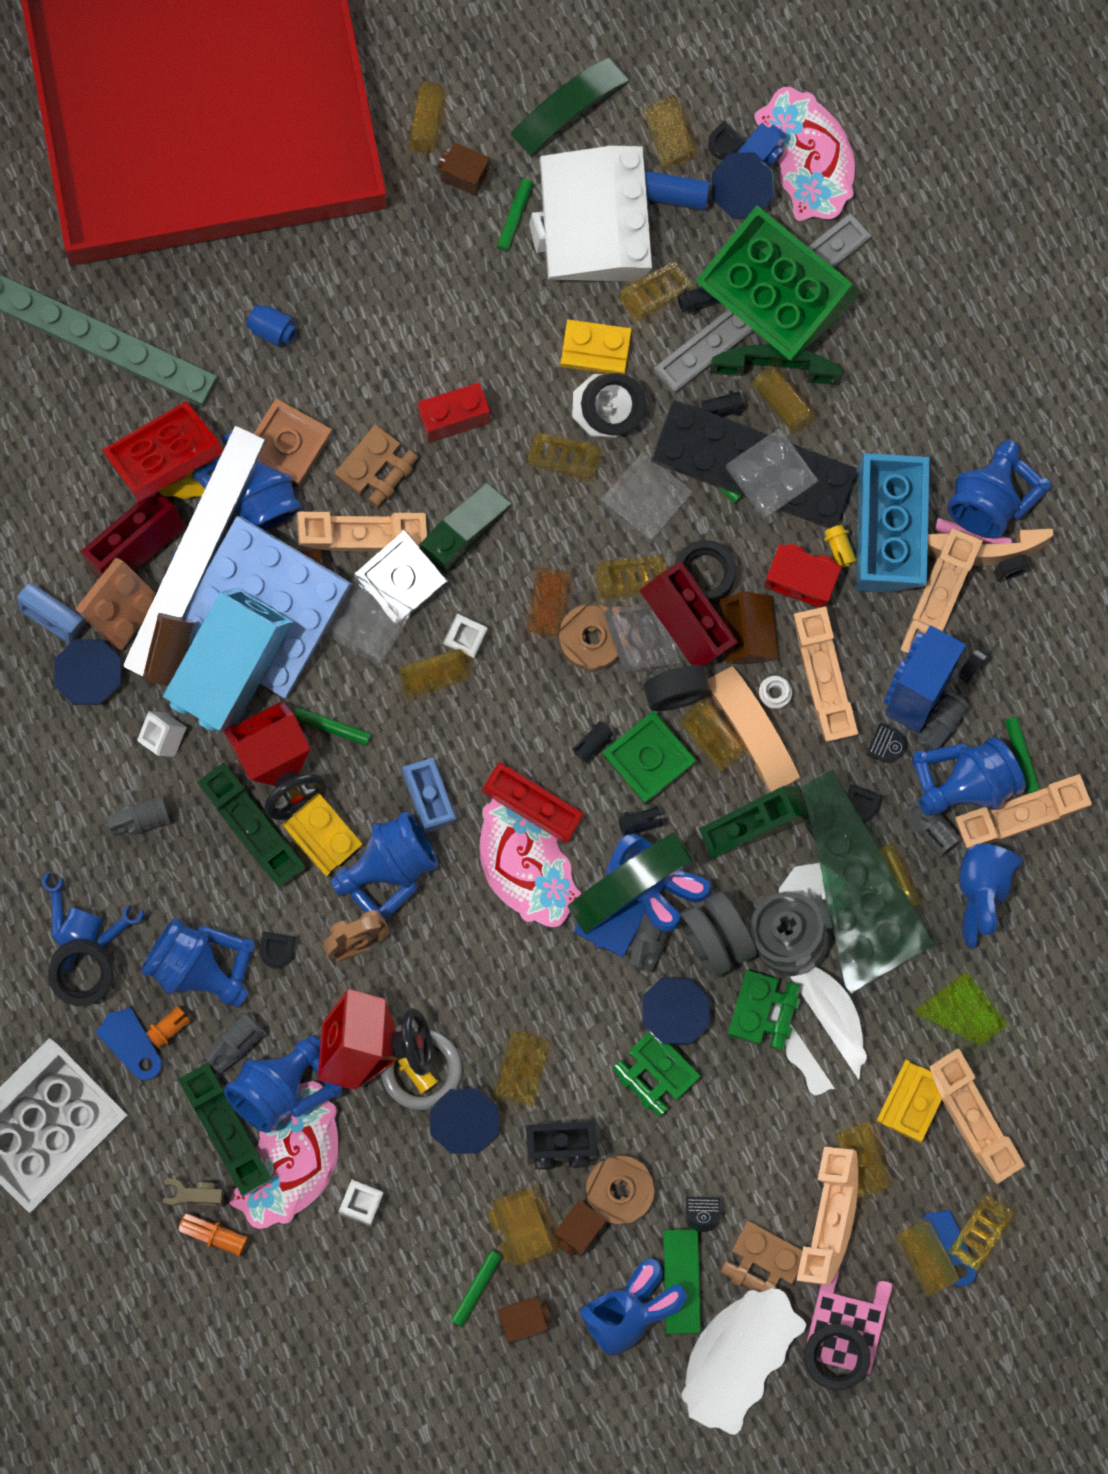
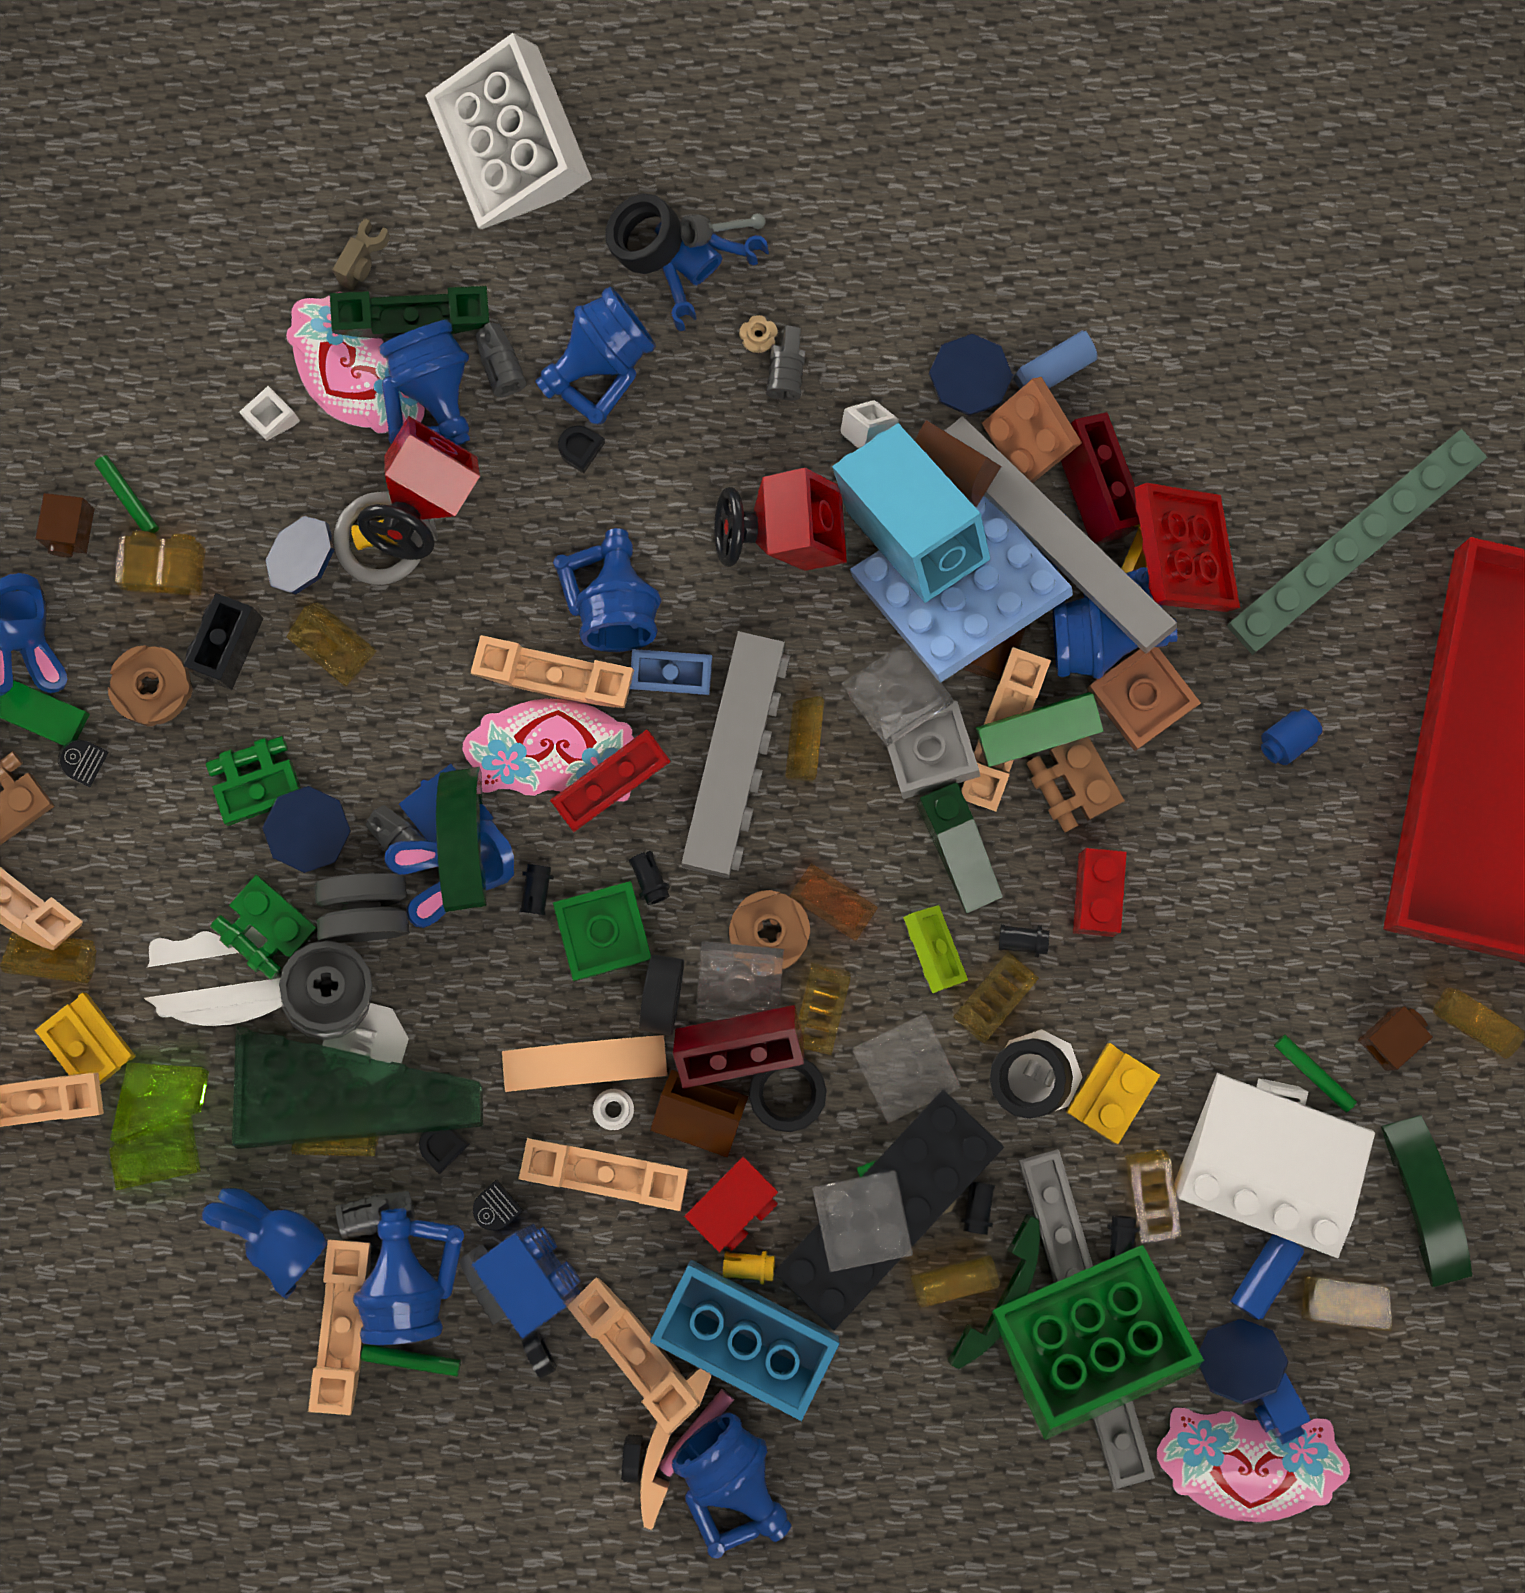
camera: 115 degrees right, 5 degrees up
(57, 922) = (697, 229): none -> dark grey hinge
(126, 859) = (761, 343): none -> tan plate
(130, 1043) = (551, 260): blue piece -> none
(167, 1027) = (547, 300): orange pin -> none
(213, 1234) = (312, 259): orange axle -> none
(250, 825) = (705, 480): dark green slope -> none
(321, 834) = (679, 541): yellow plate -> none
(332, 726) = (798, 606): green piece -> none
(350, 504) = (1039, 729): none -> green tile
(353, 938) = (544, 523): medium nougat plate -> none
(465, 635) = (834, 792): white slope -> none
(469, 882) = (552, 674): none -> light nougat slope
(470, 719) = (733, 755): none -> light grey brick
(512, 453) = (1024, 939): none -> black pin
(549, 512) = (935, 948): none -> lime plate
(578, 1229) = (128, 621): reddish brown brick -> none
(713, 735) = (594, 1014): clear yellow brick -> none
(724, 141) = (1308, 1367): black tile -> none
(755, 821) = (474, 1016): dark green slope -> none
(926, 1025) = (156, 1096): none -> clear neon green wing

